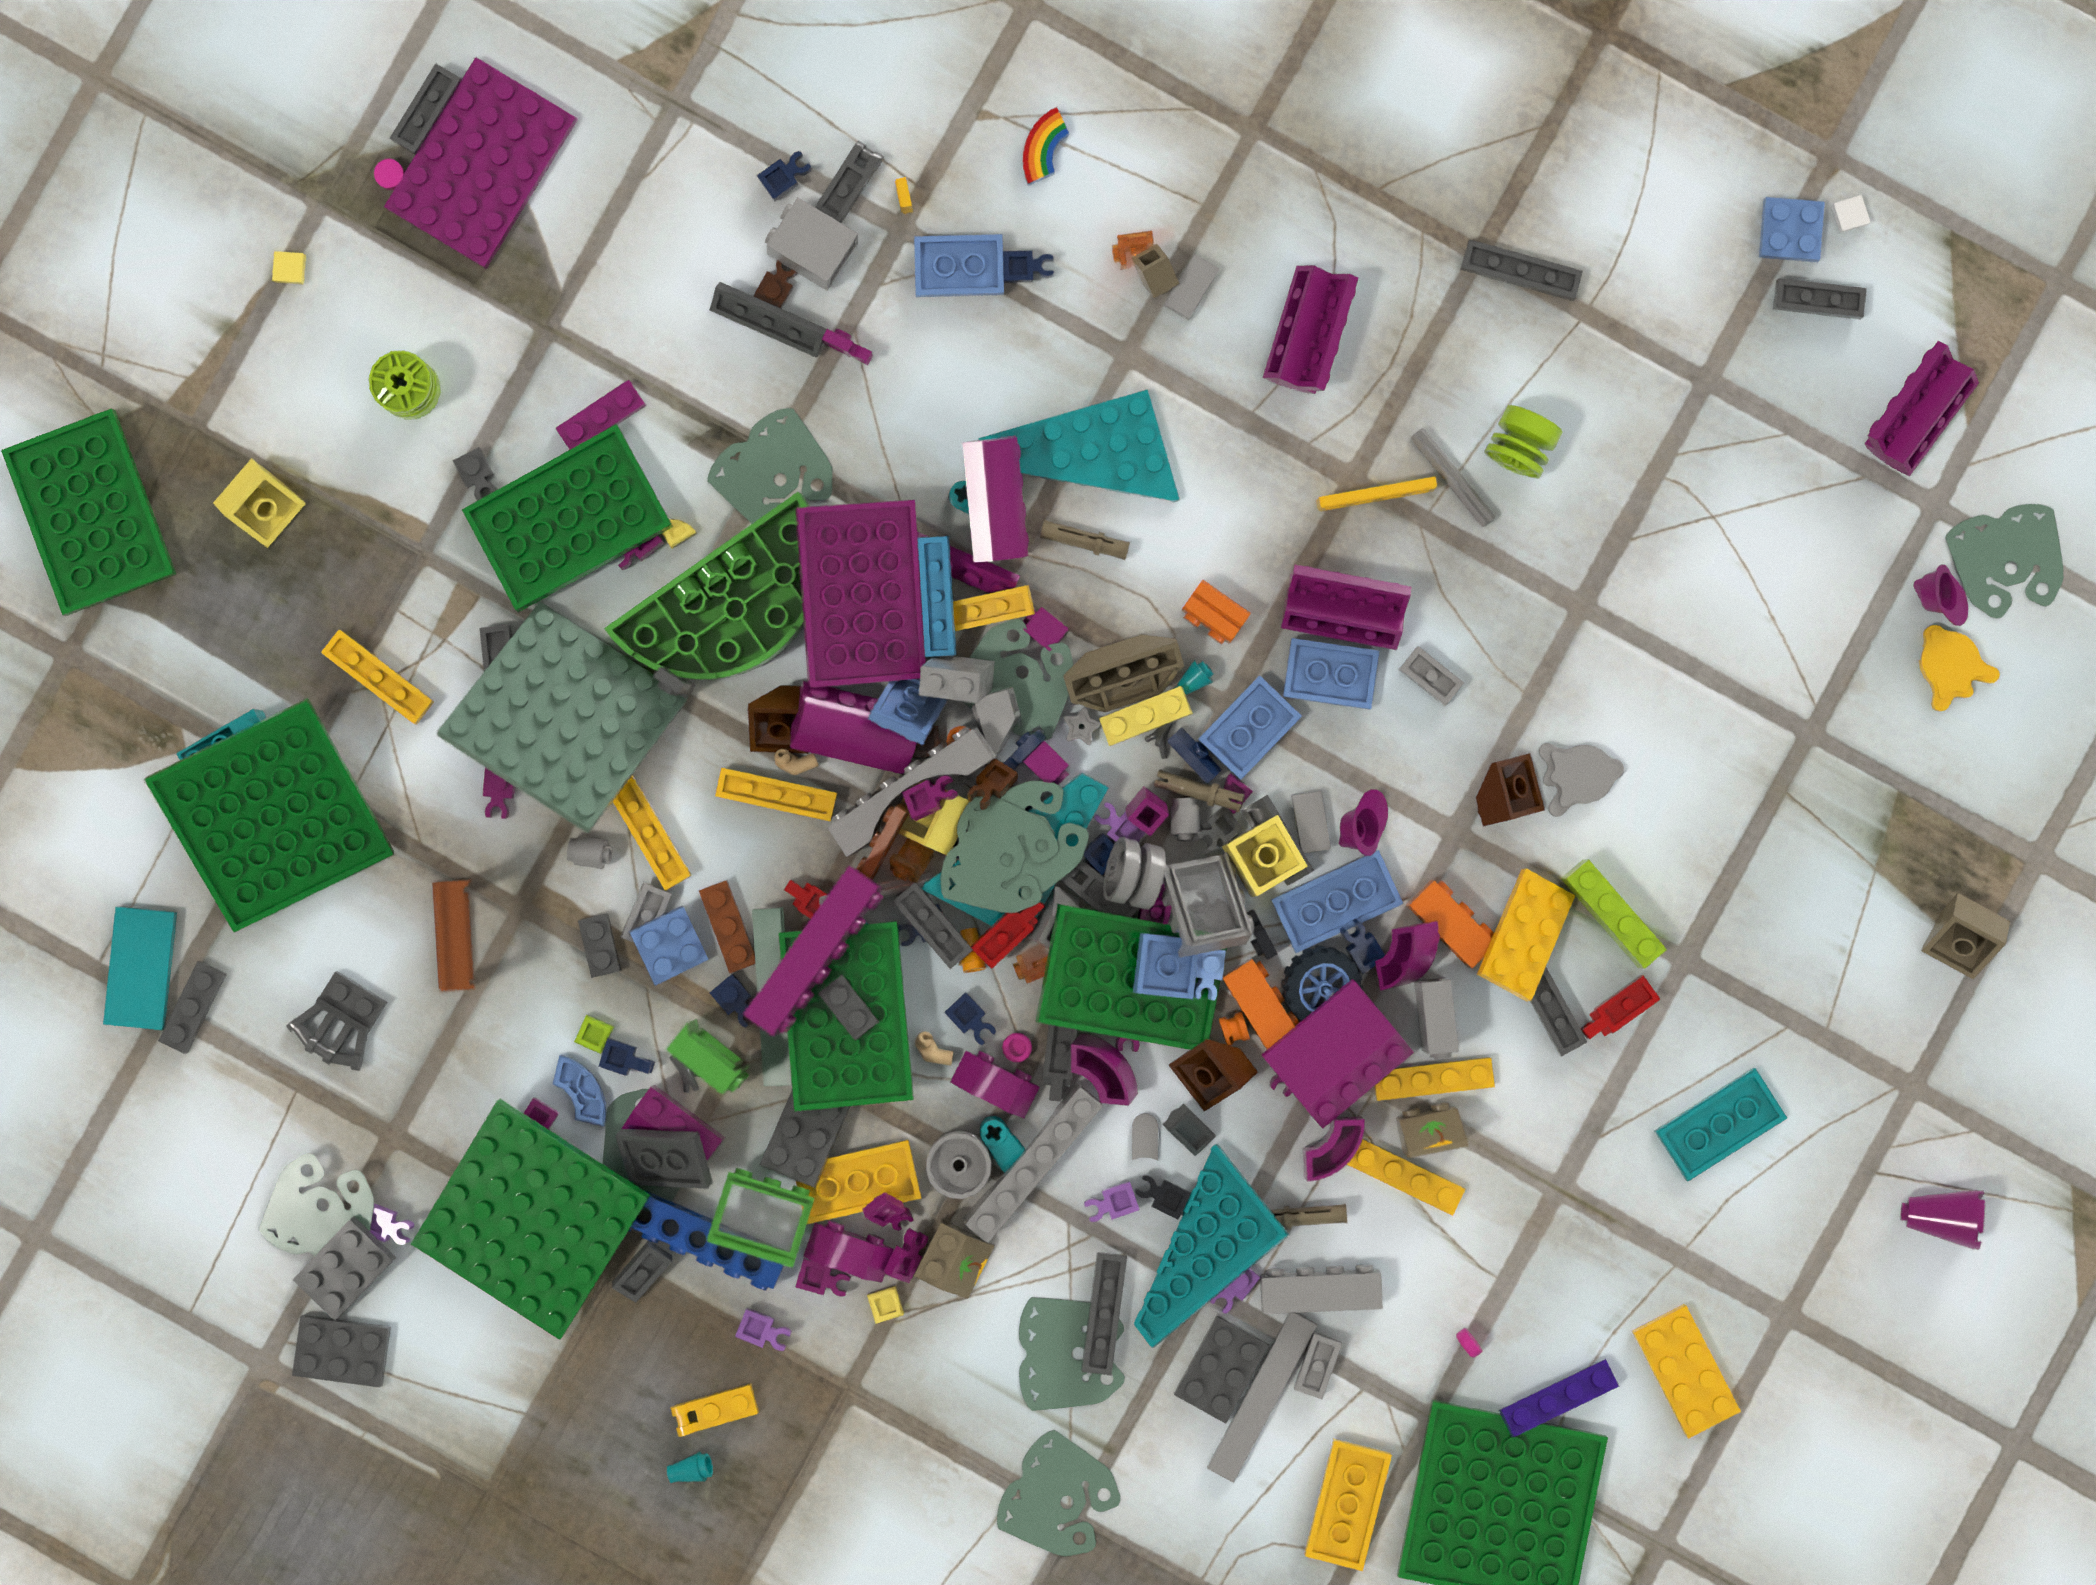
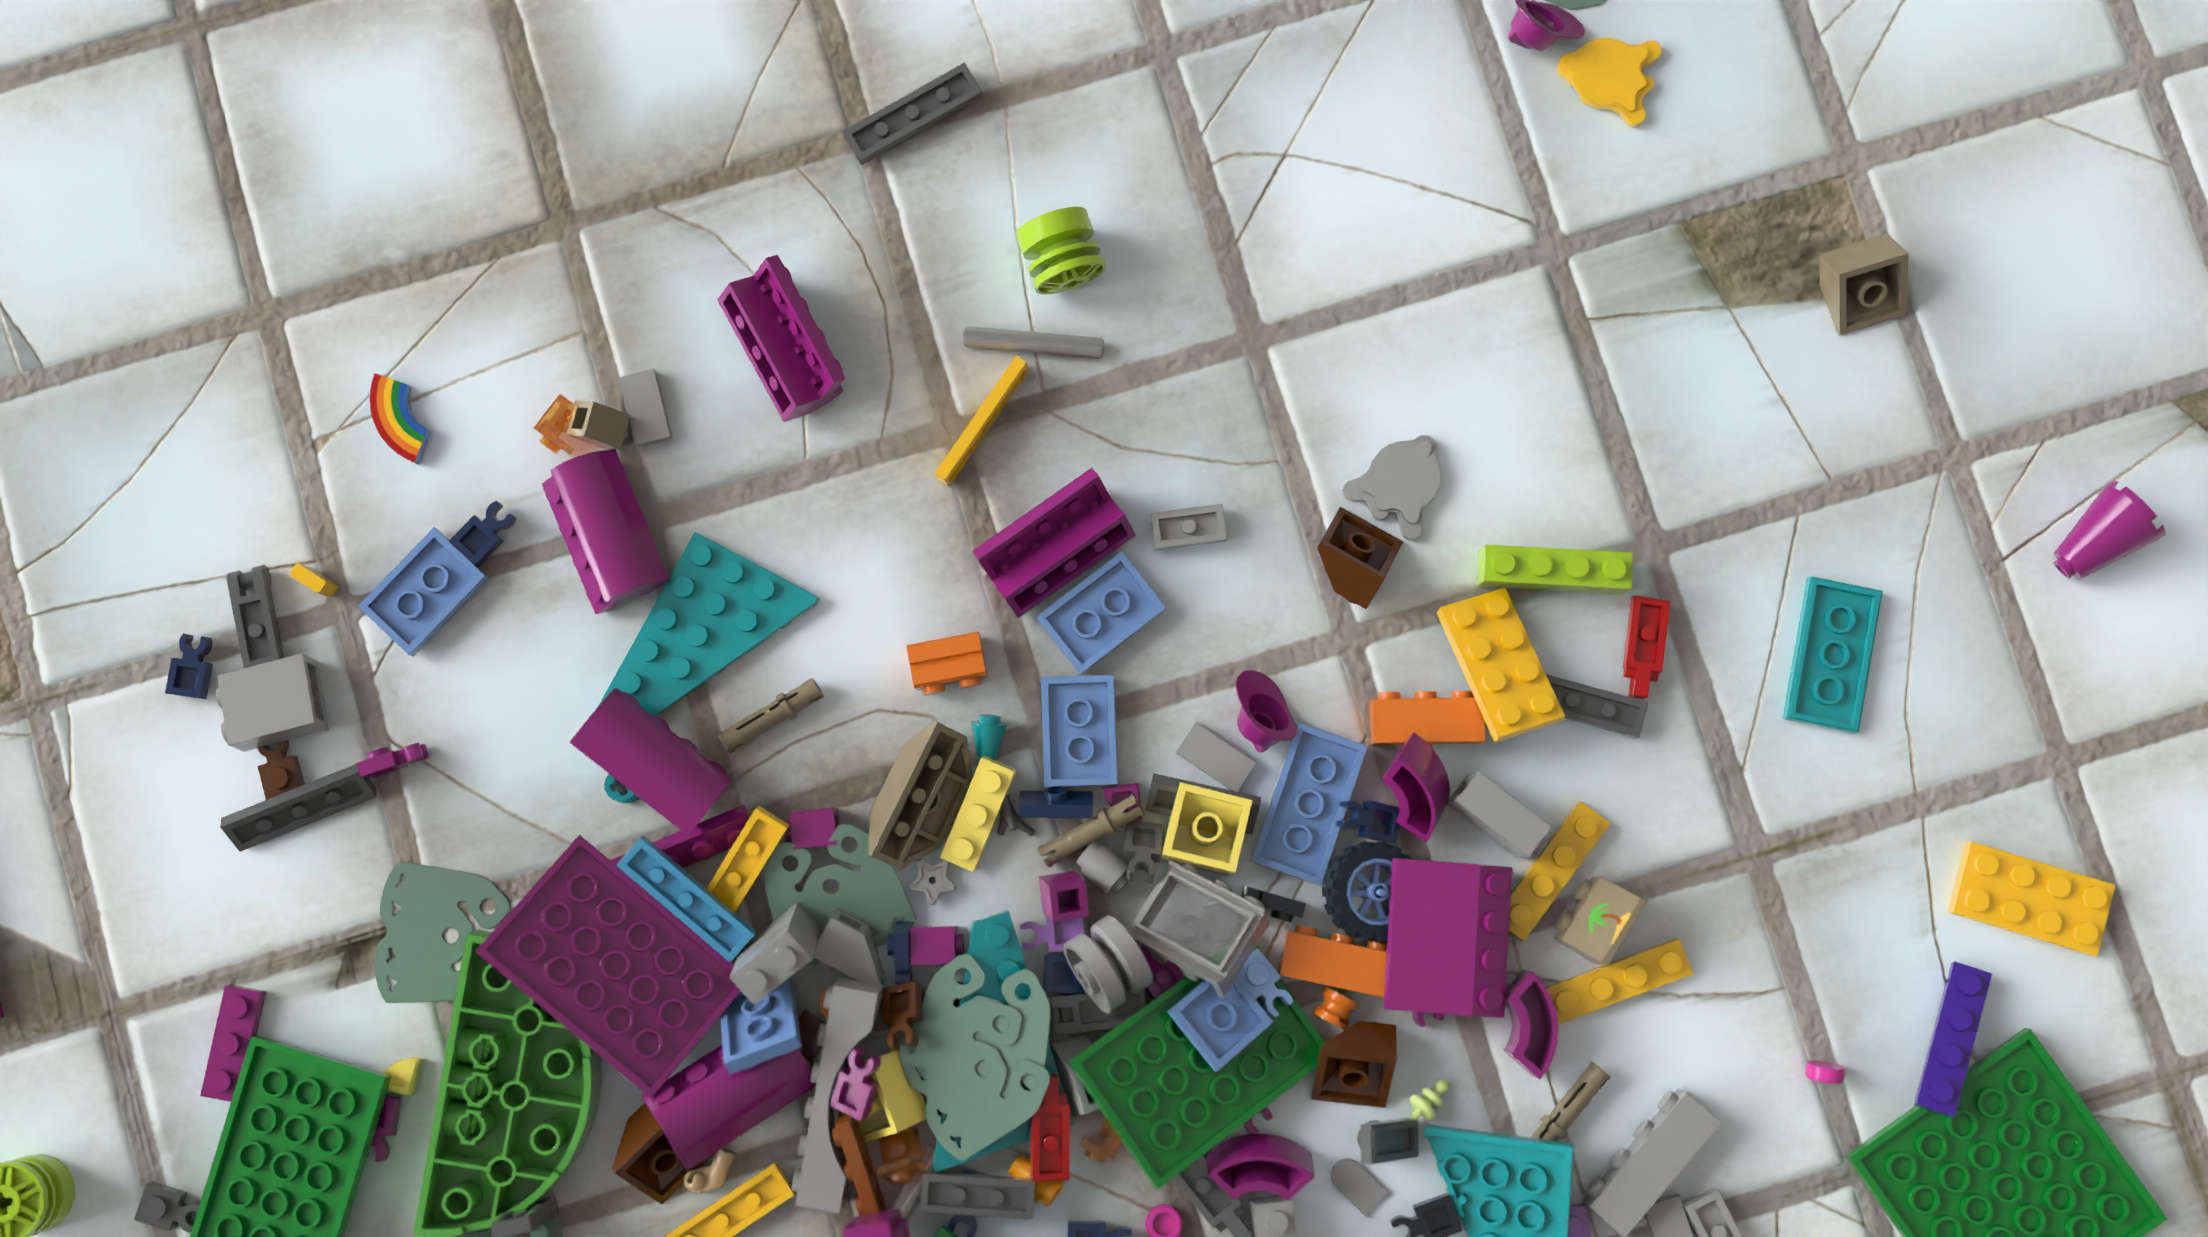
camera: 40 degrees left, 5 degrees down
(1097, 335) = (604, 529): none -> magenta brick
(1235, 1132) = (1430, 1098): none -> yellowish green hair

